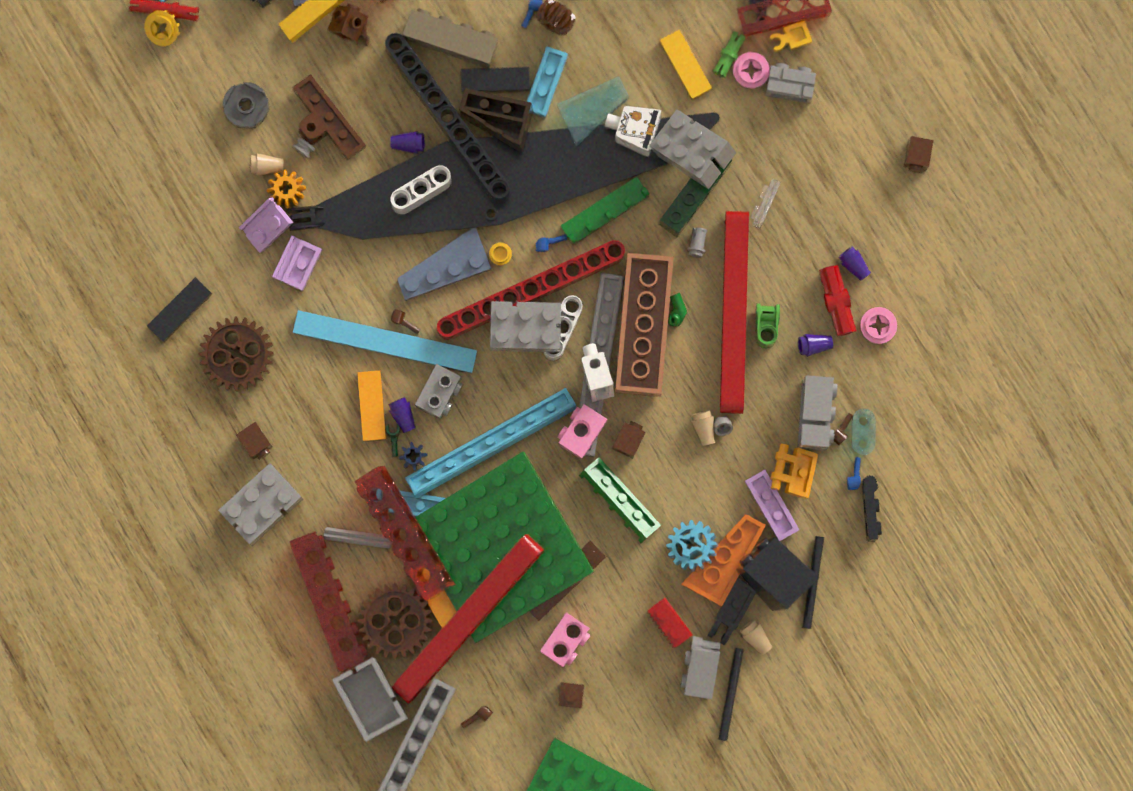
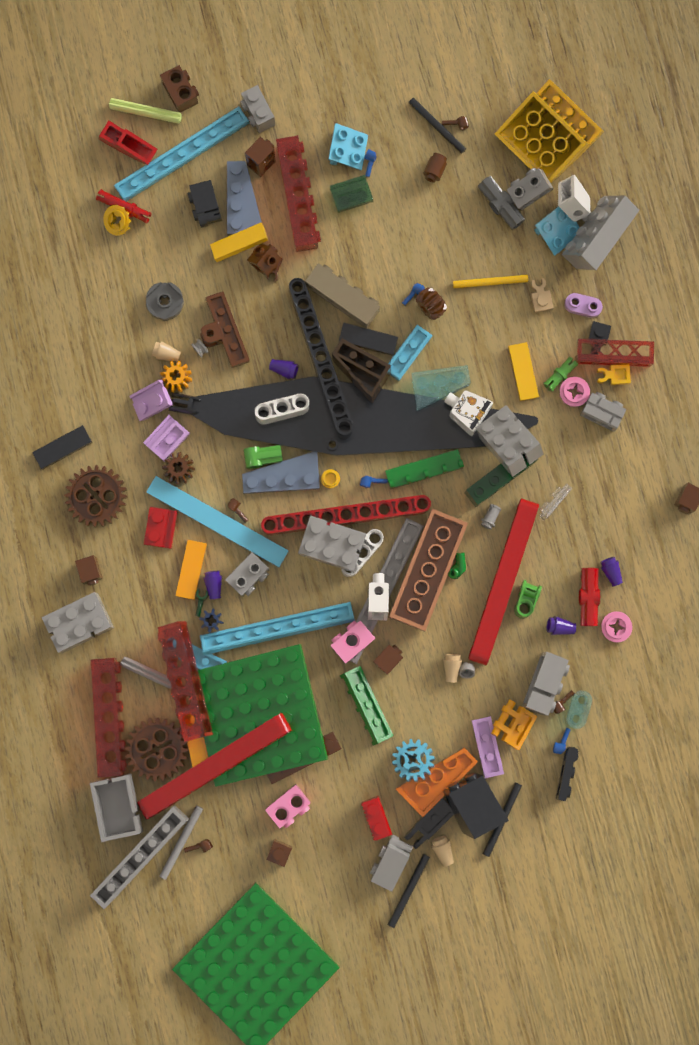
camera: 15 degrees right, 0 degrees up
(317, 286) = (172, 471): none -> reddish brown gear
(321, 368) = (160, 527): none -> red plate
(409, 253) = (257, 457): none -> bright green piece
(455, 718) = (181, 842): none -> light grey bar

